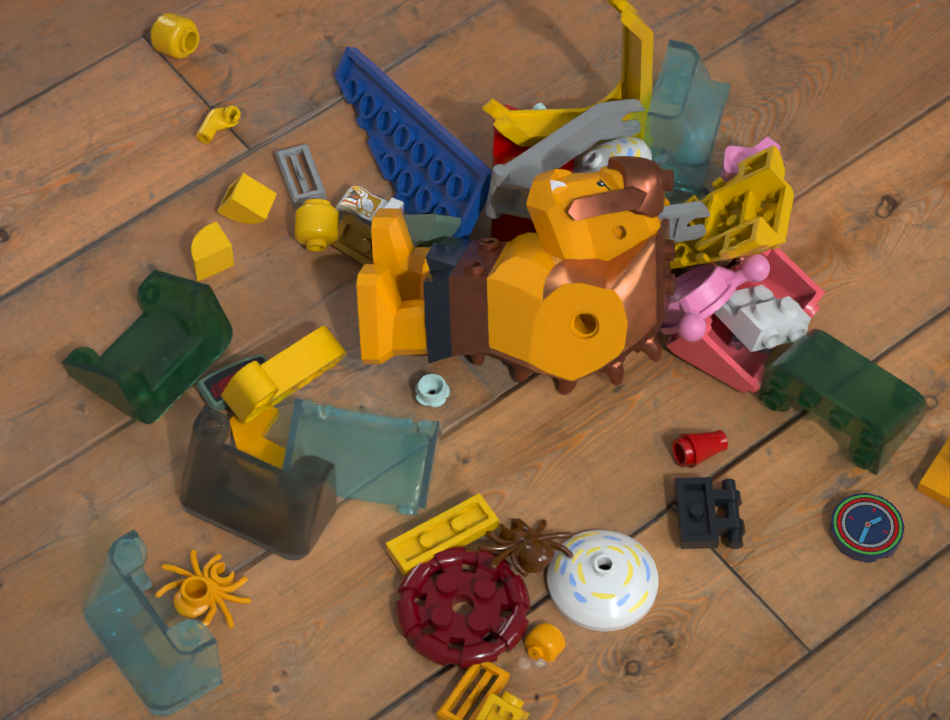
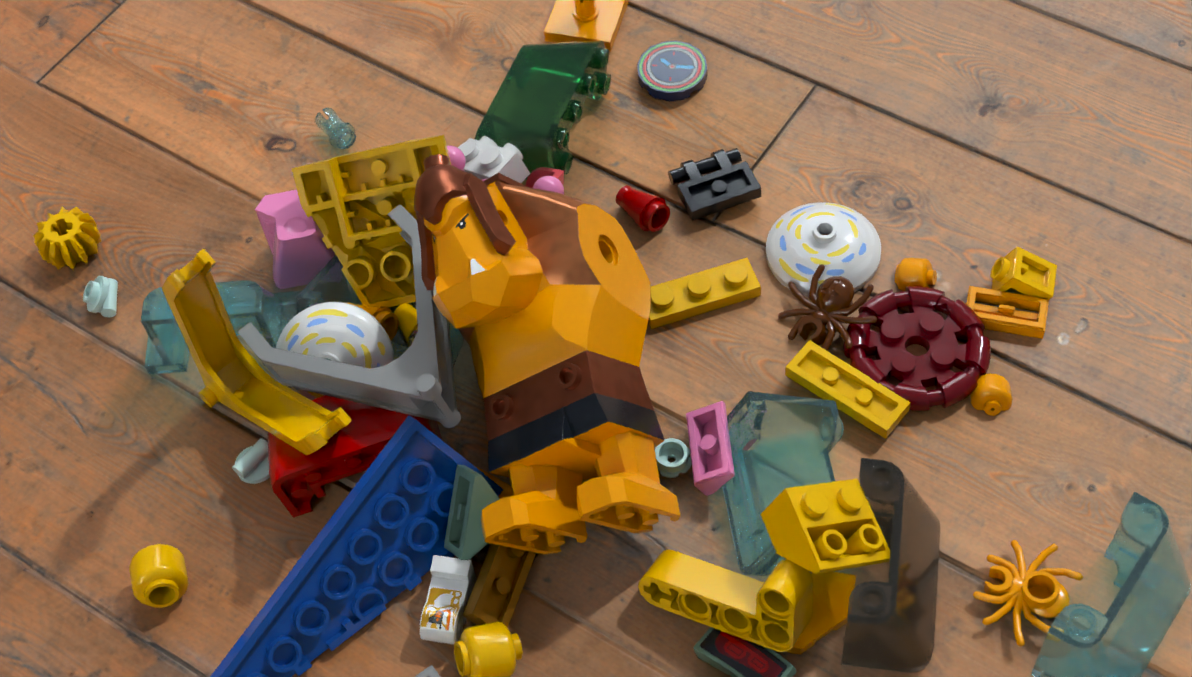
camera: 100 degrees left, 0 degrees up
(283, 421) = (826, 527): none -> yellow slope
(395, 651) = (992, 394): none -> light orange piece
(423, 407) = (710, 447): none -> bright pink slope
(469, 49) = (158, 575): none -> yellow head
(591, 466) = (702, 292): none -> yellow plate
(752, 55) = (101, 296): none -> light aqua plate
(819, 37) = (67, 238): none -> yellow gear
(874, 244) = (340, 133): none -> clear light blue pin

